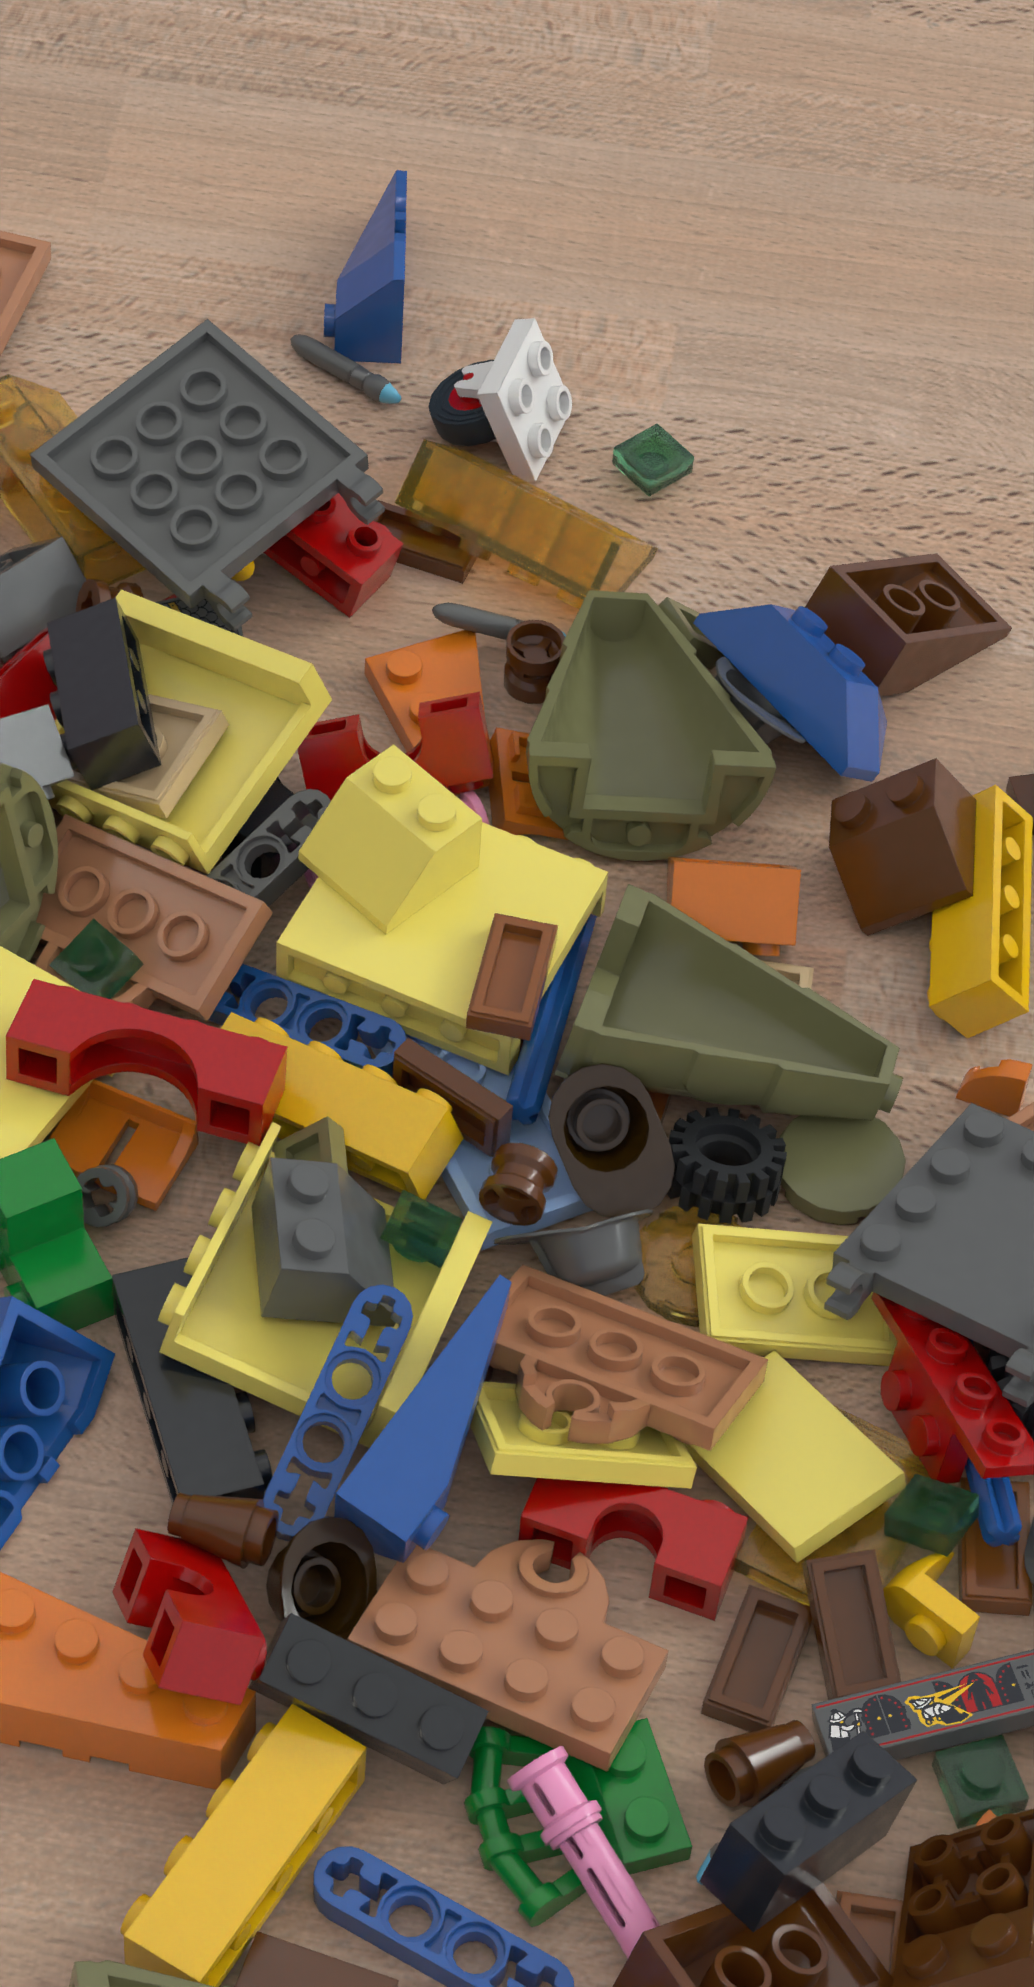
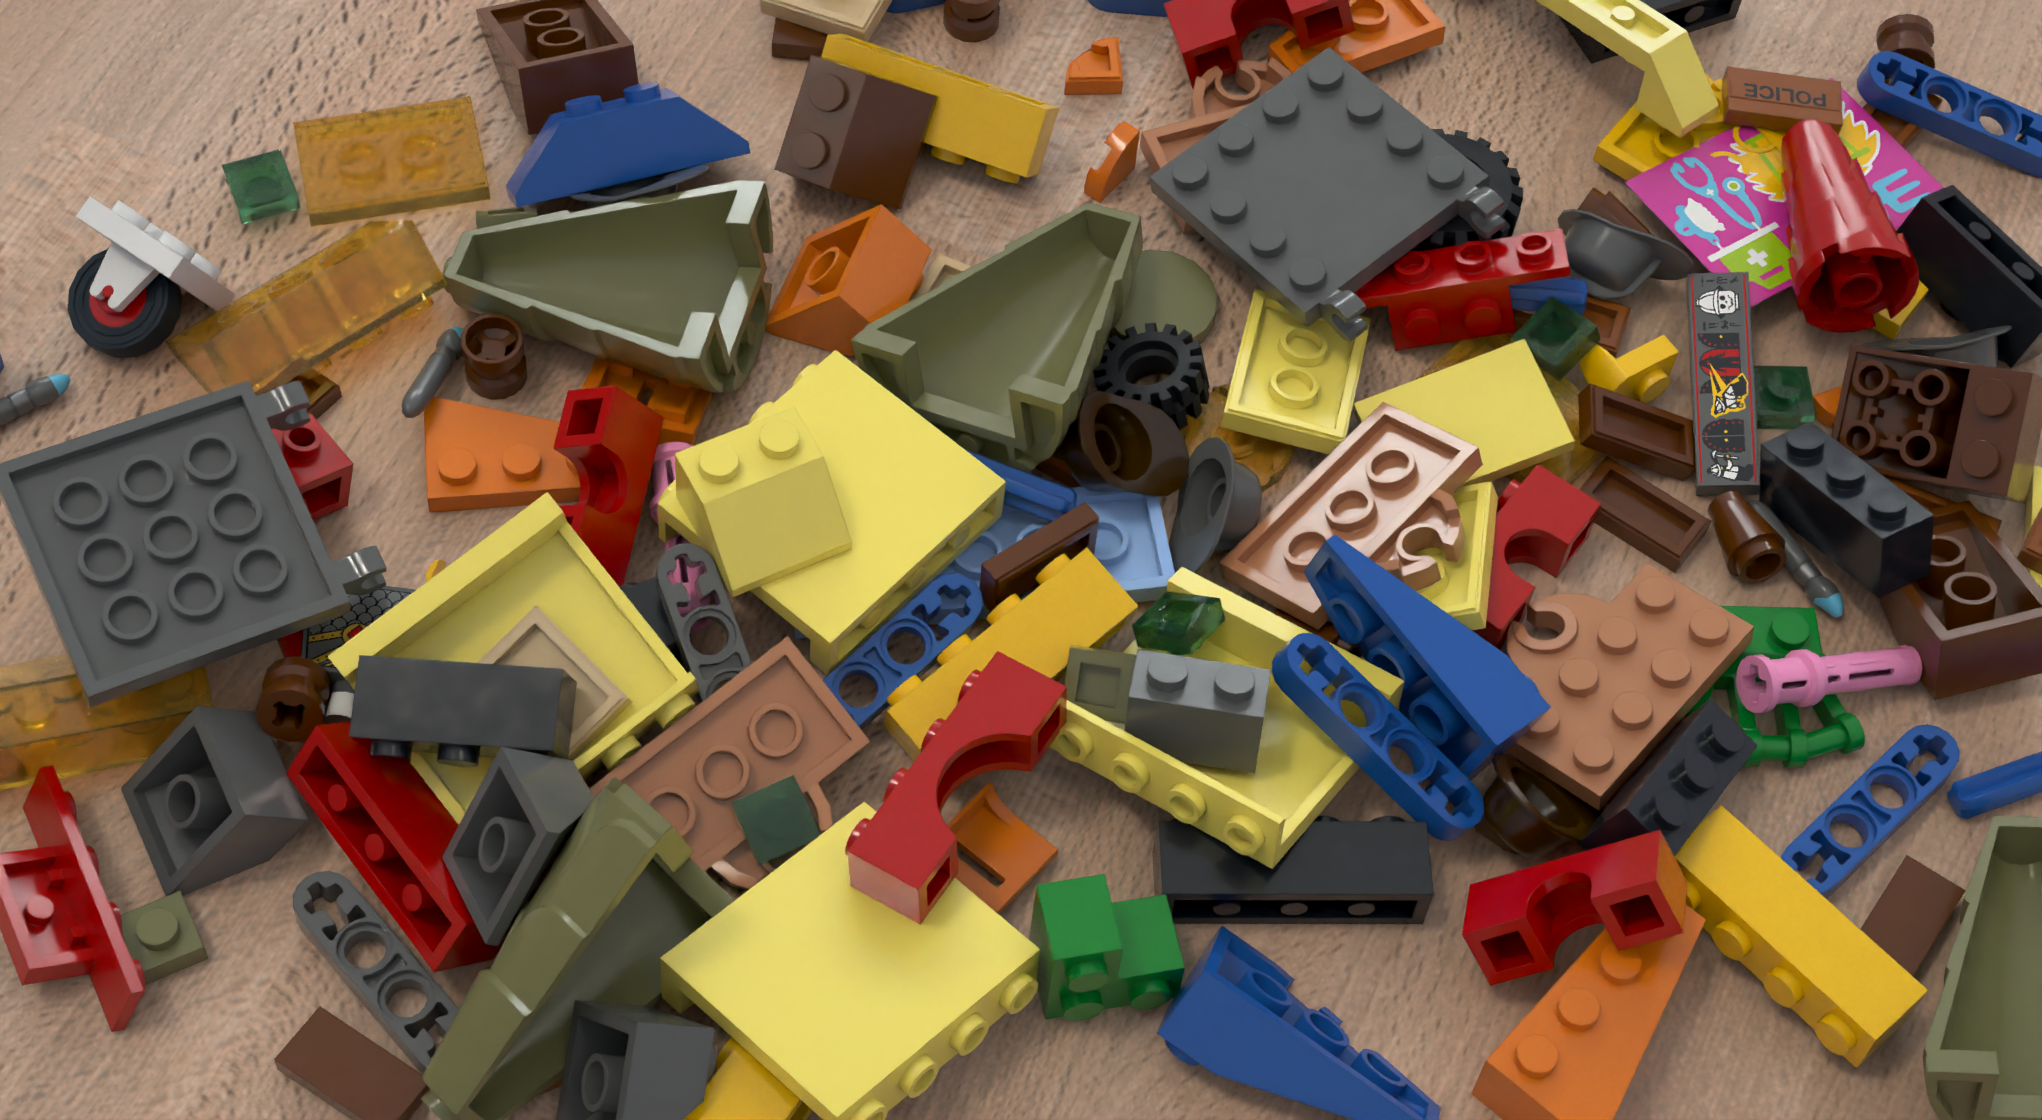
camera: 75 degrees left, 5 degrees up
(109, 1176) = (1024, 878): dark grey bush -> none
(225, 1526) = (1477, 857): reddish brown cone -> none
(512, 977) = (943, 456): dark orange tile -> none
(518, 1184) = (1151, 532): reddish brown wheel -> none
(732, 541) = (391, 161): none -> clear yellow tile

